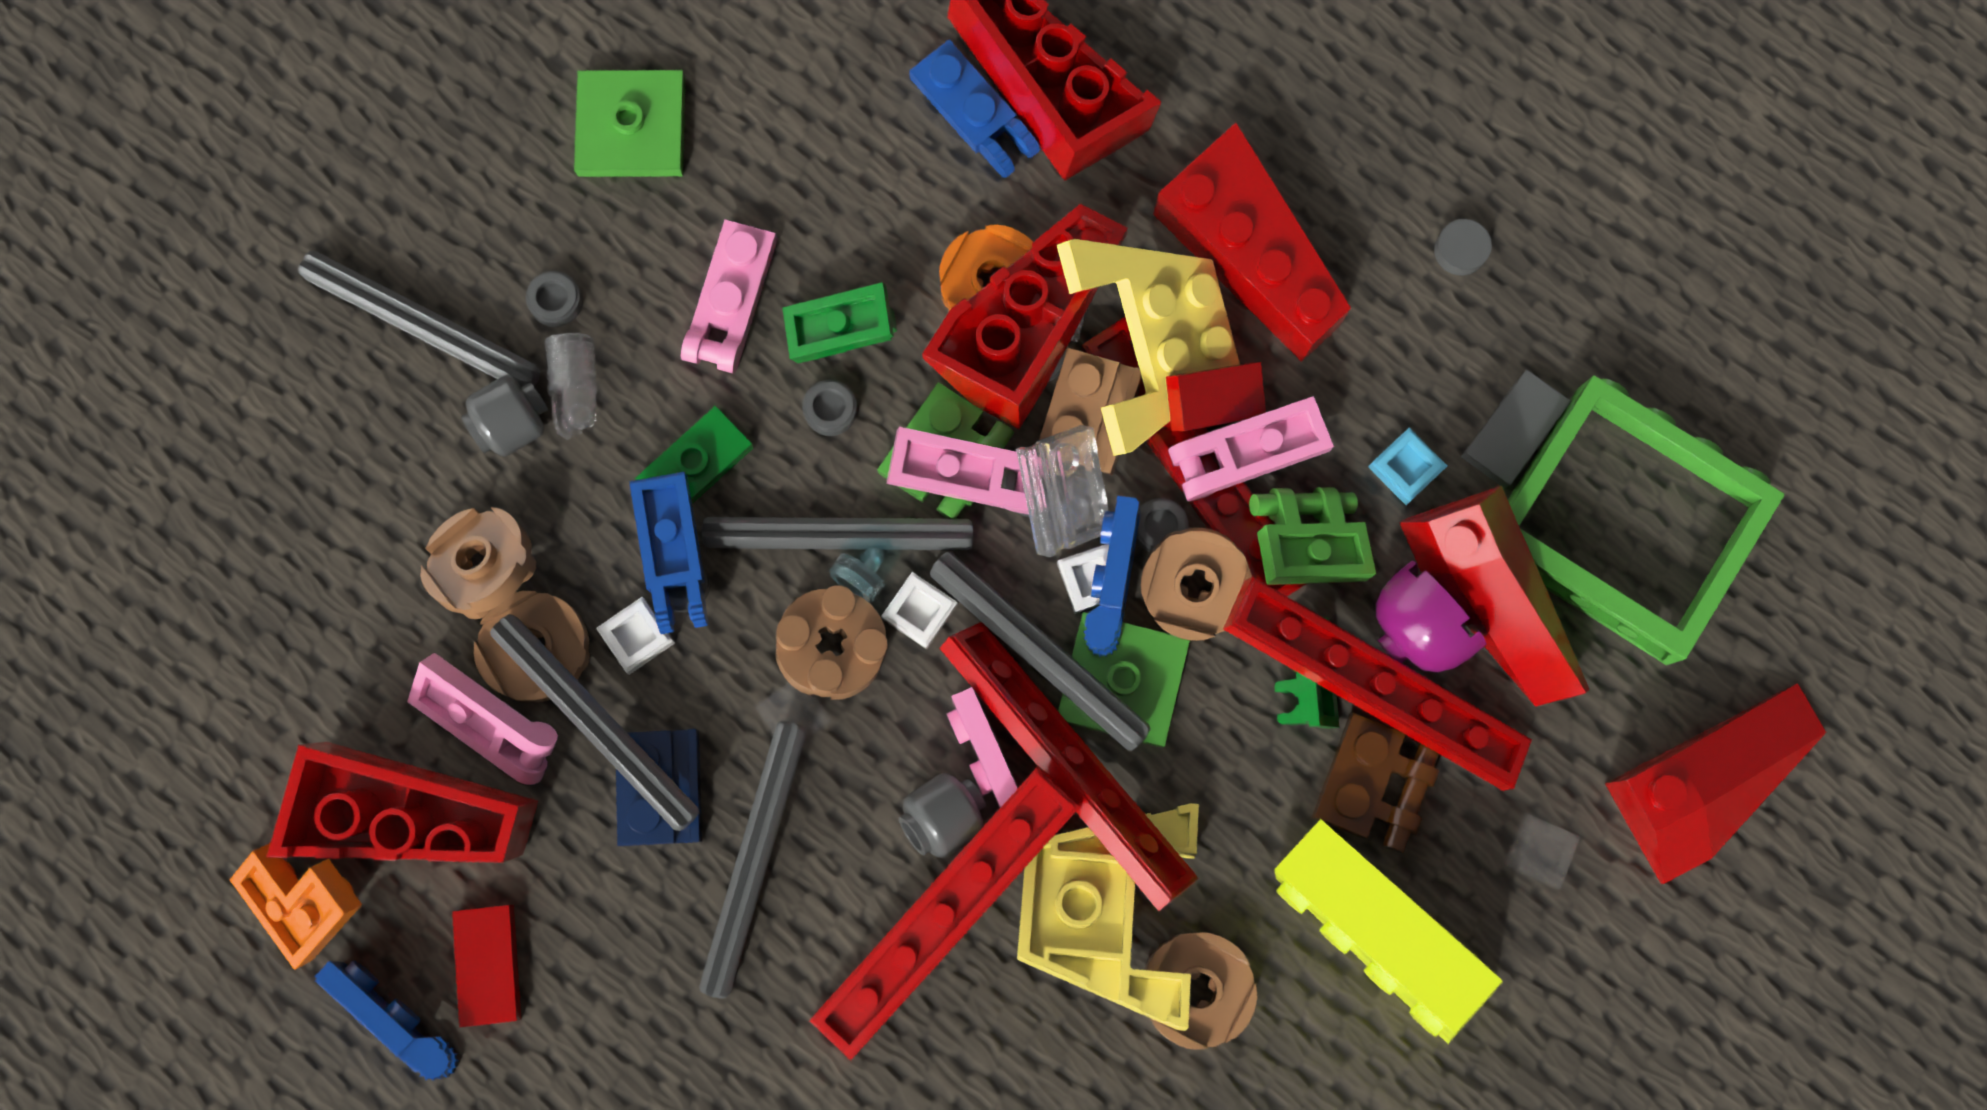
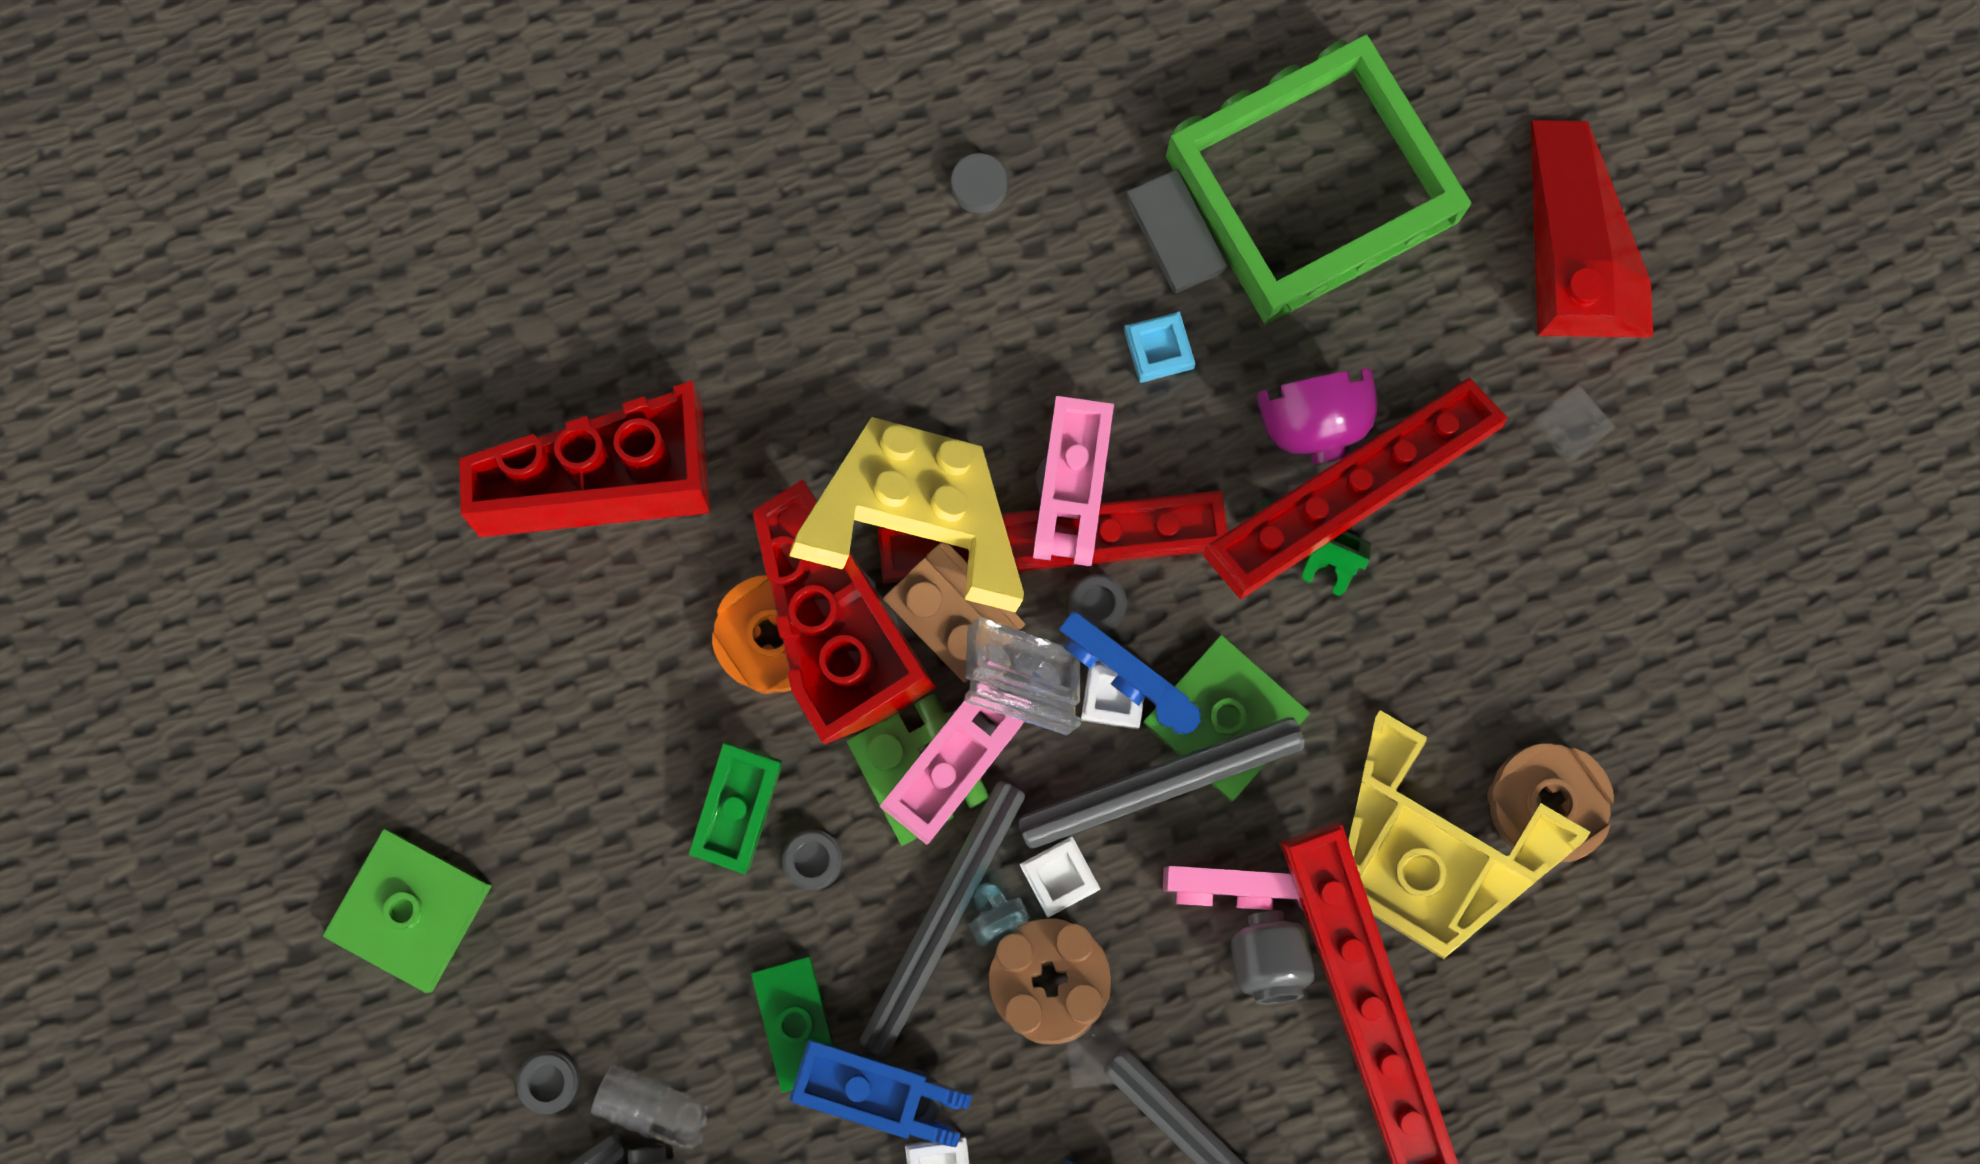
camera: 60 degrees left, 0 degrees up
(730, 295) = (644, 900): bright pink plate -> none
(971, 106) = (583, 561): blue hinge -> none
(1071, 763) = (1285, 811): red tile -> none
(1179, 556) = (1140, 601): medium nougat plate -> none
(1215, 396) = (1006, 485): red tile -> none
(1236, 216) = (845, 371): red wedge -> none
(1317, 551) = (1200, 478): bright green plate -> none
(1360, 777) = (1427, 549): reddish brown plate -> none
(1386, 931) = (1586, 602): neon yellow wedge -> none
(1490, 572) = (1304, 330): red wedge -> none

